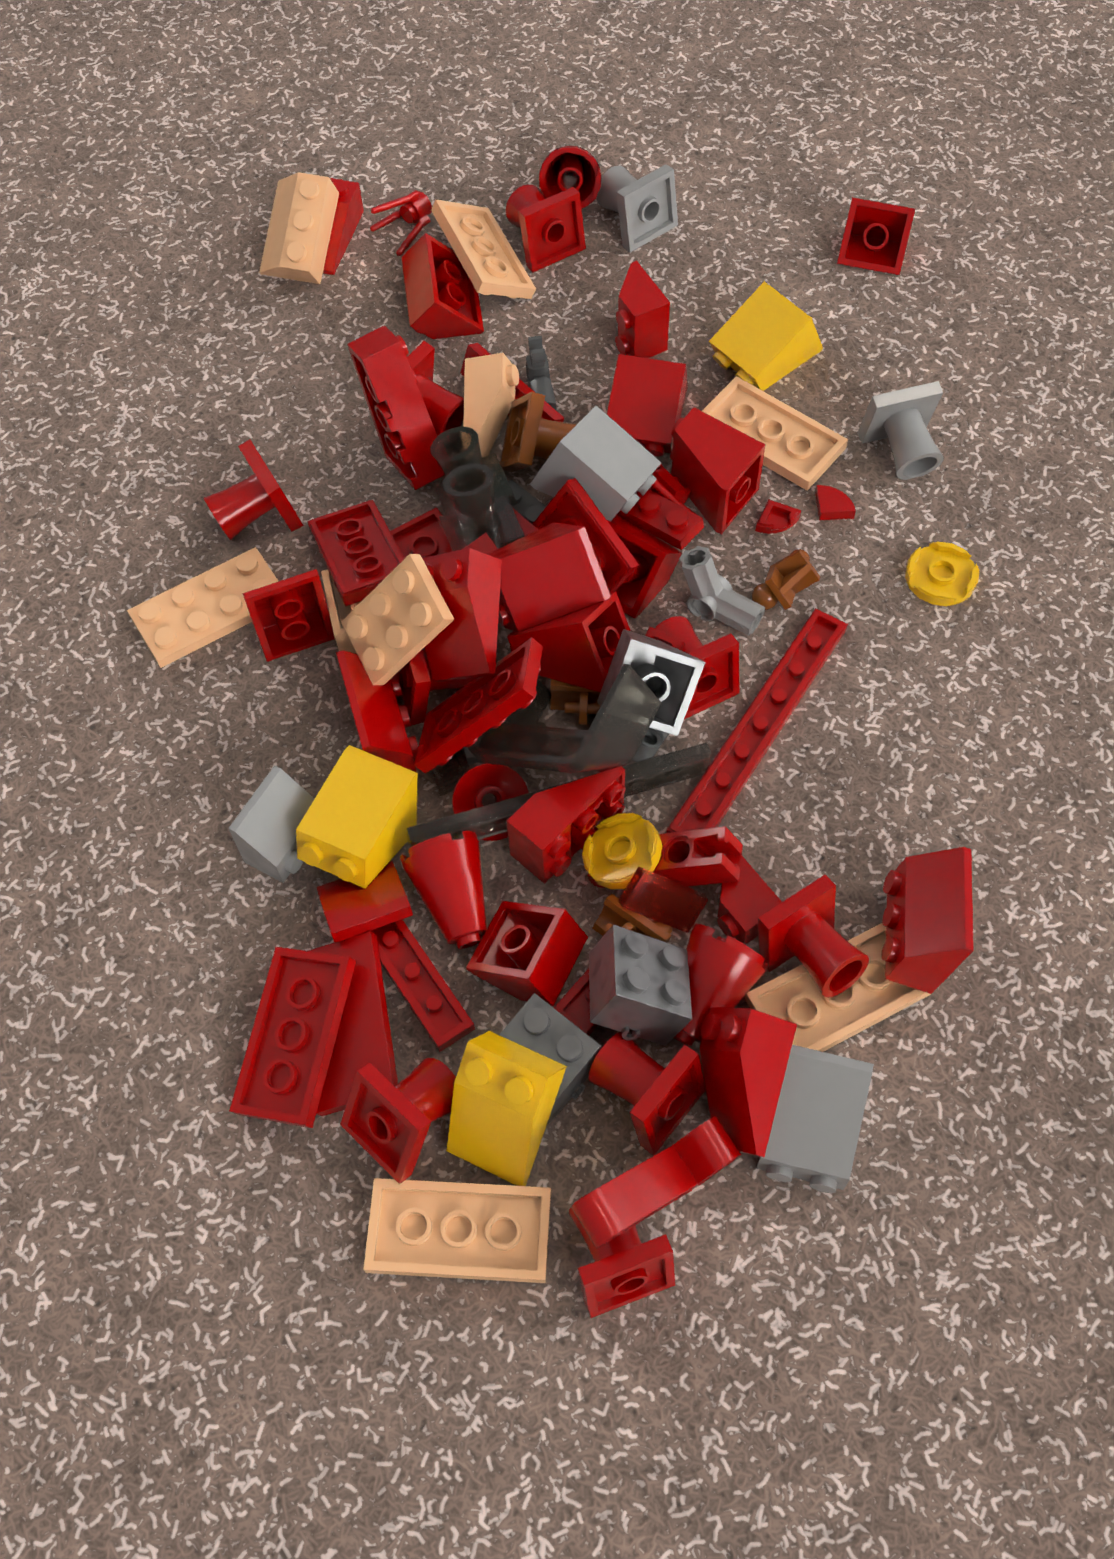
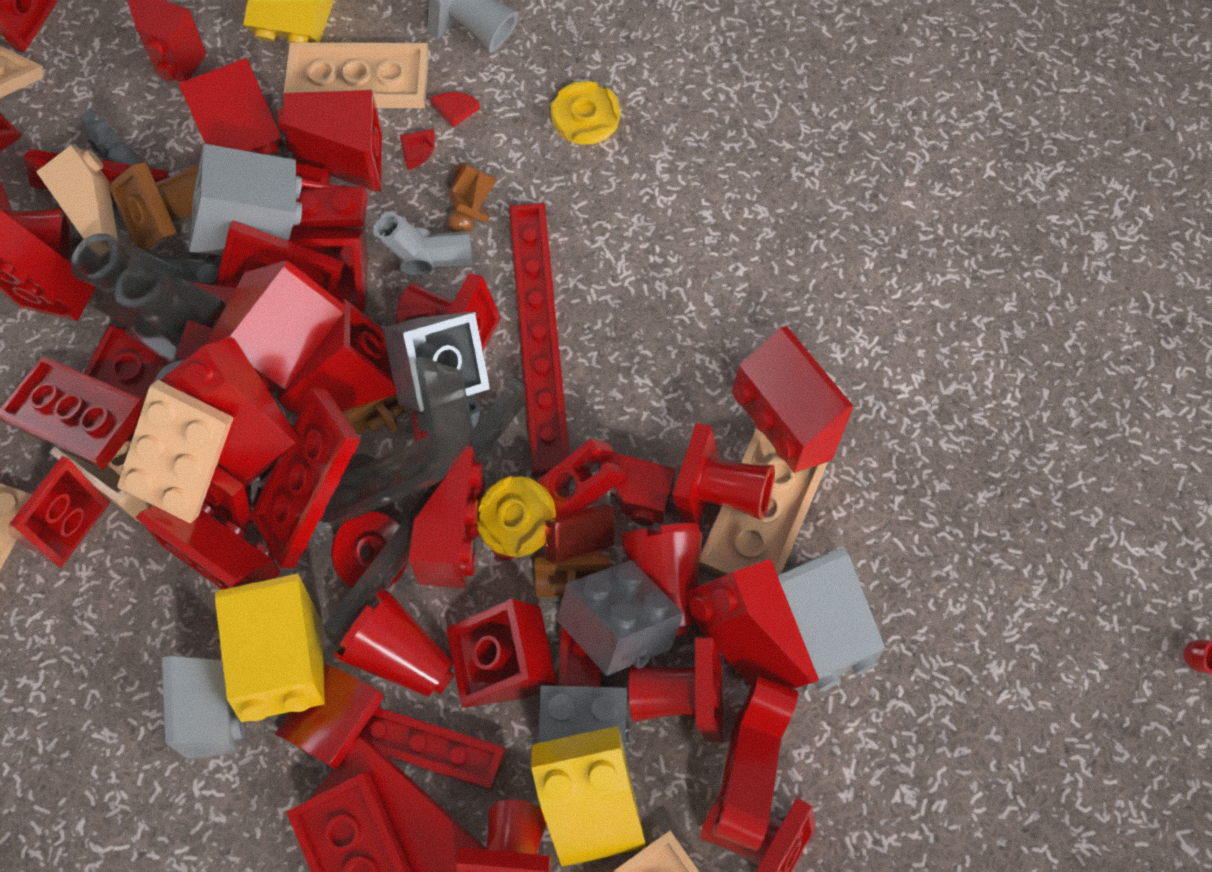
camera: 40 degrees left, 5 degrees up
(447, 775) = (316, 554): clear smoke tile -> none

